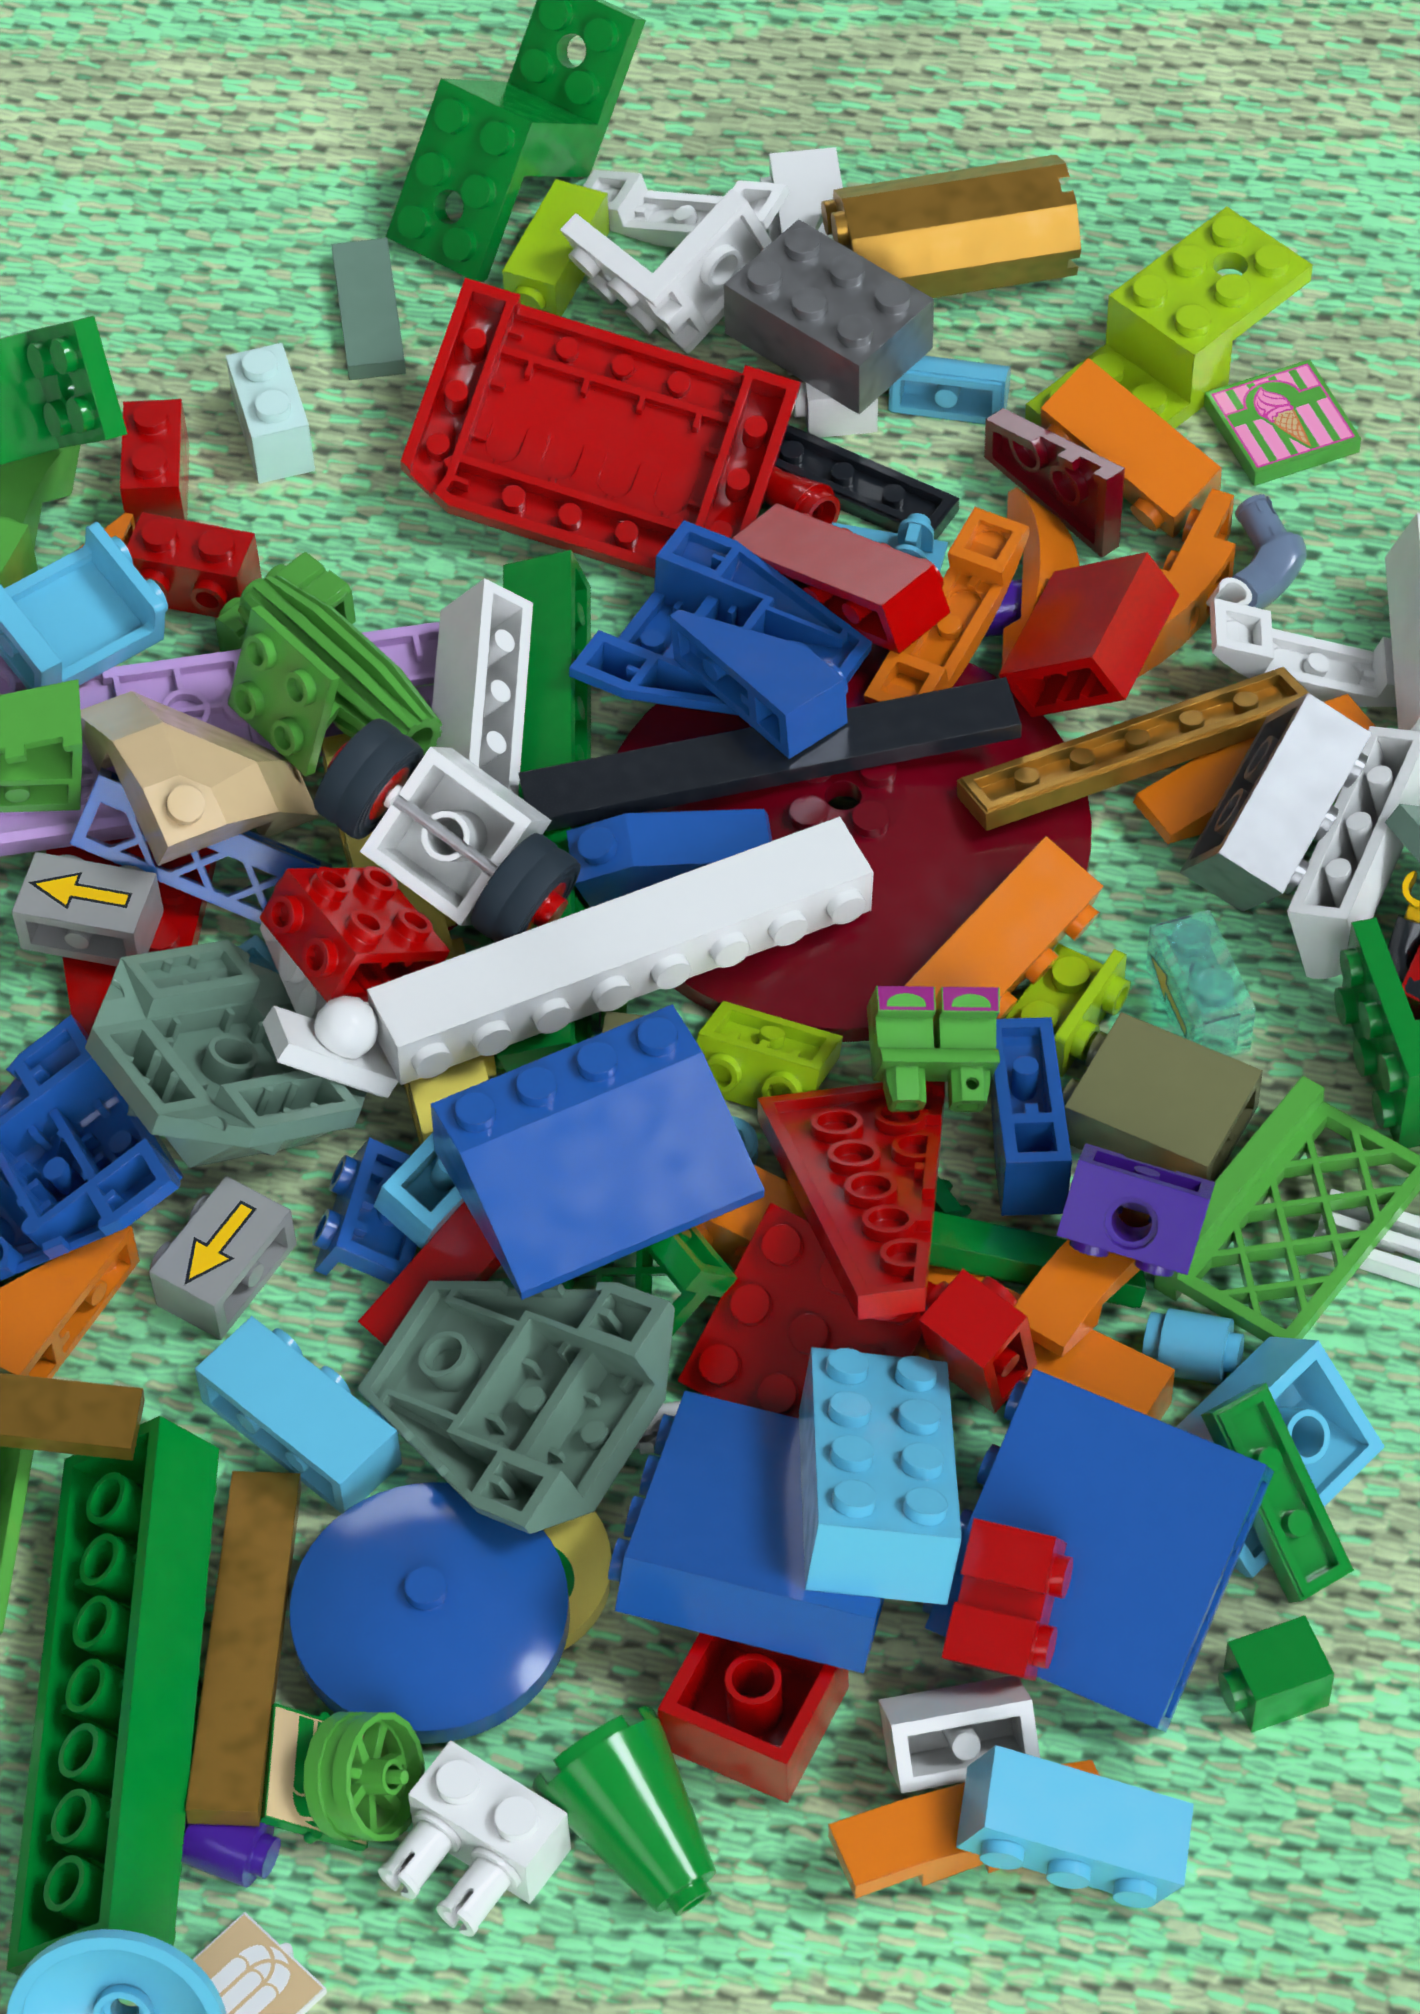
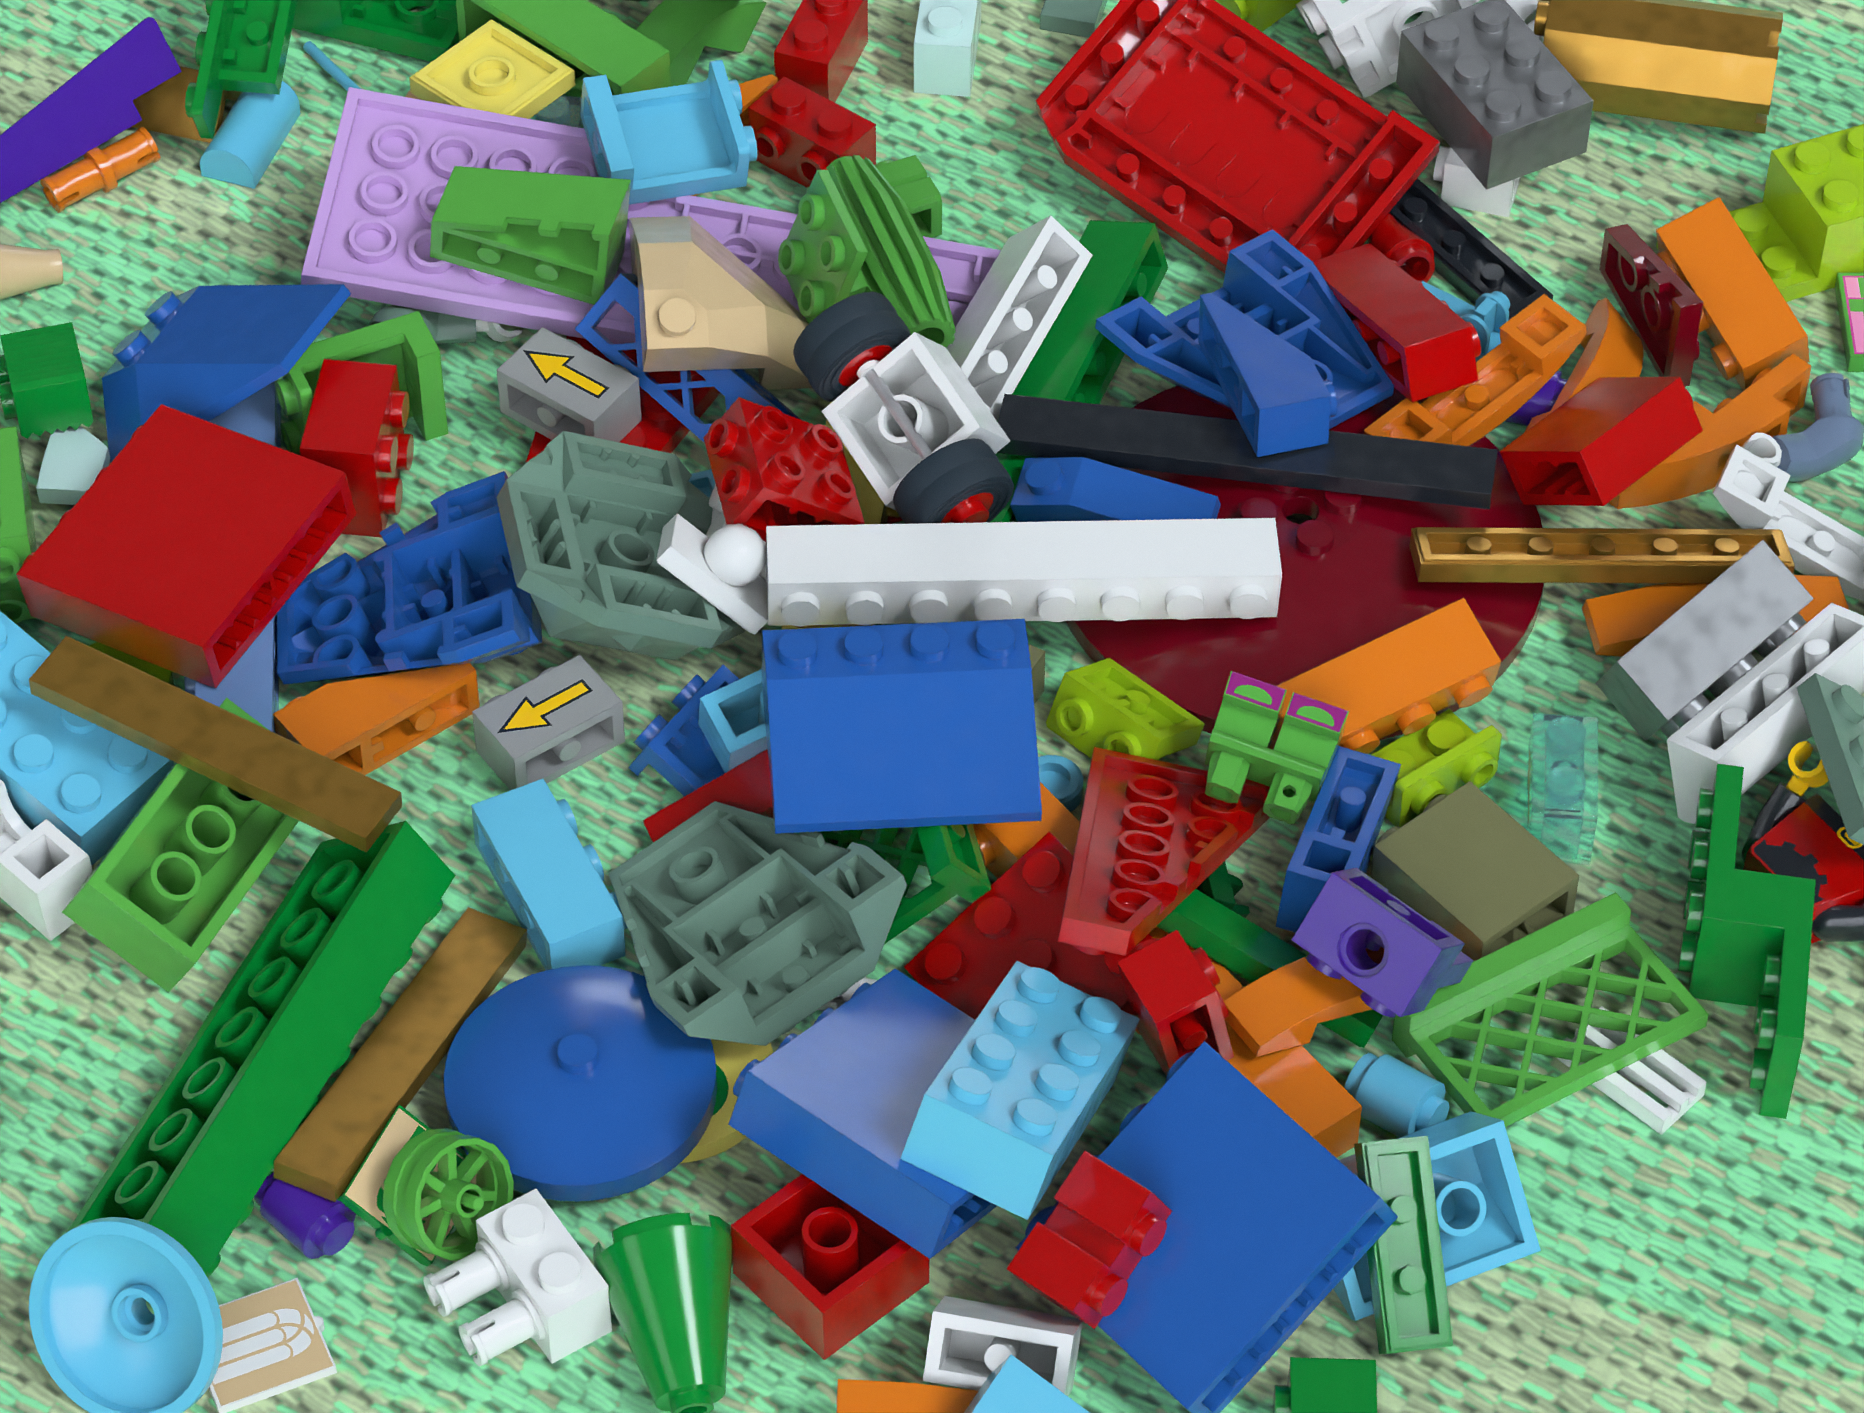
camera: 20 degrees right, 5 degrees down
(951, 389) = (1592, 196): medium azure brick -> none

